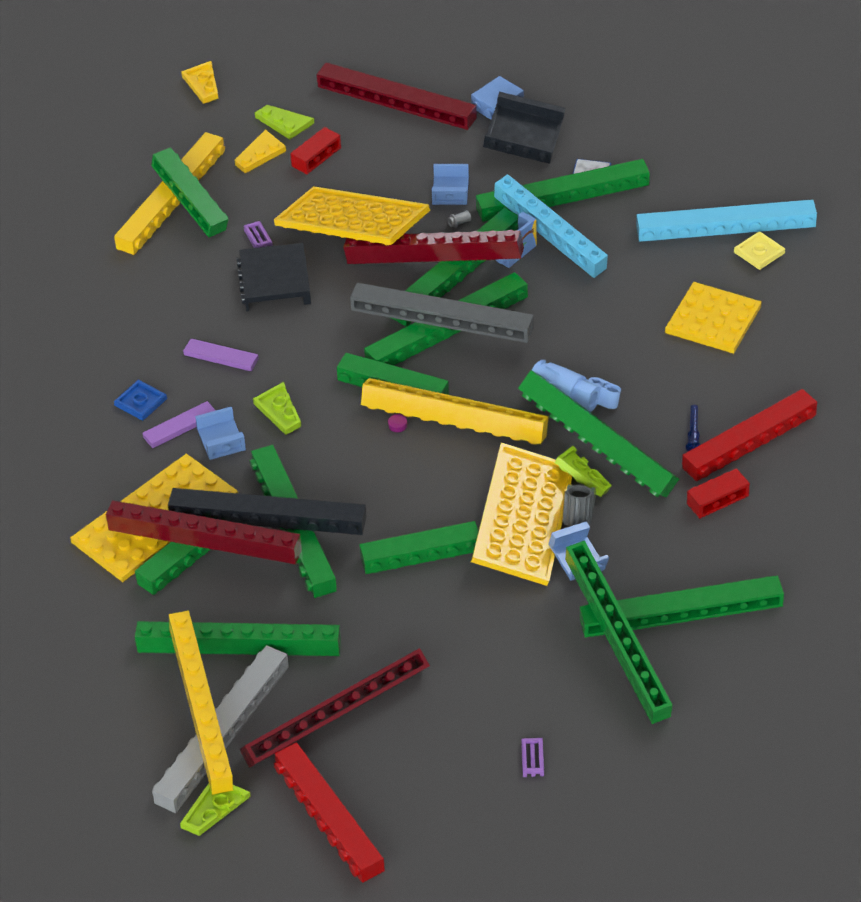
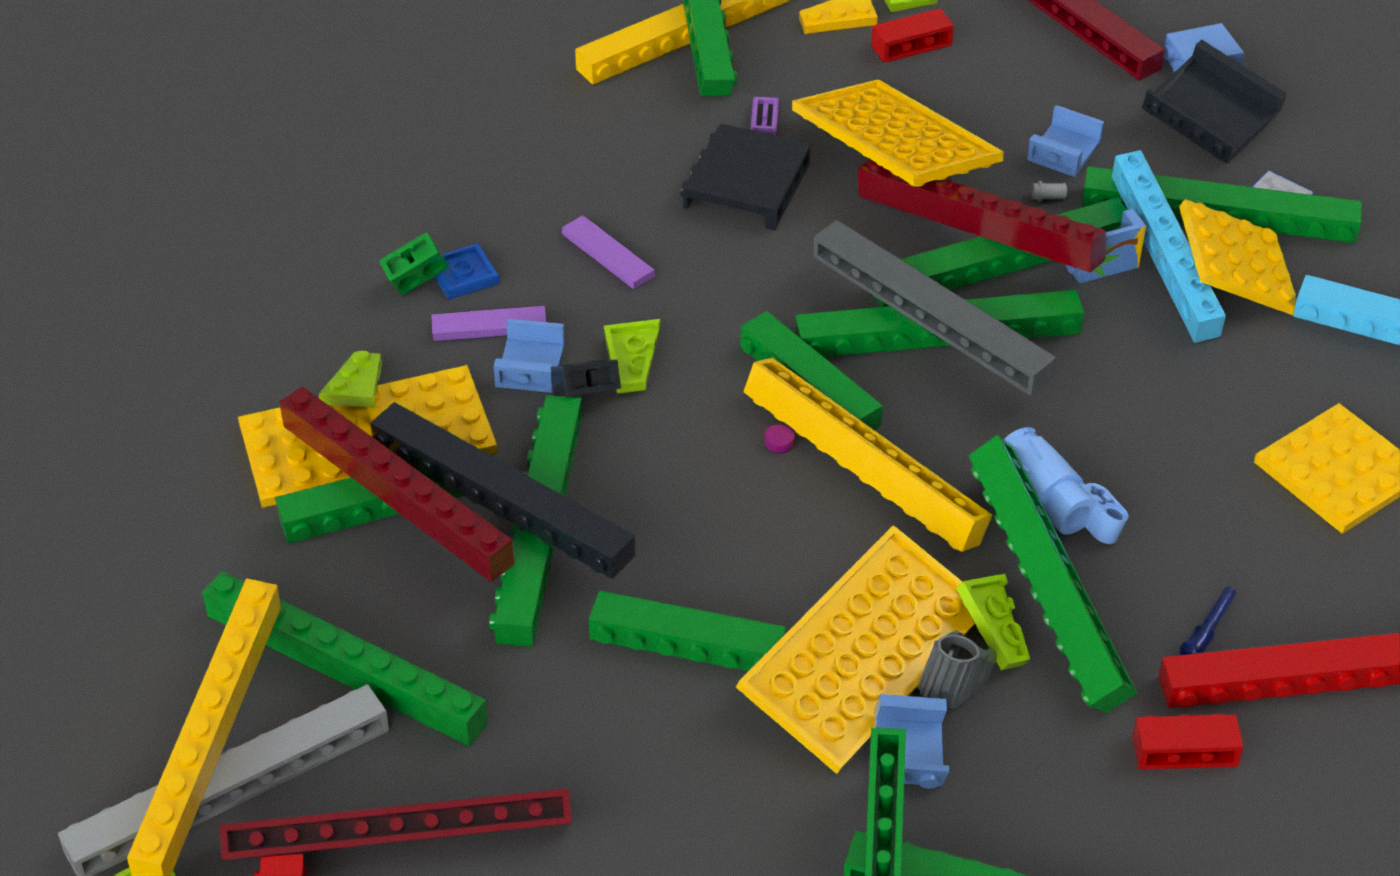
camera: 25 degrees right, 0 degrees up
(114, 406) = (414, 263): none -> green brick
(130, 487) = (355, 381): none -> lime wing
(266, 432) = (585, 377): none -> black brick
(593, 217) = (1238, 257): none -> yellow plate

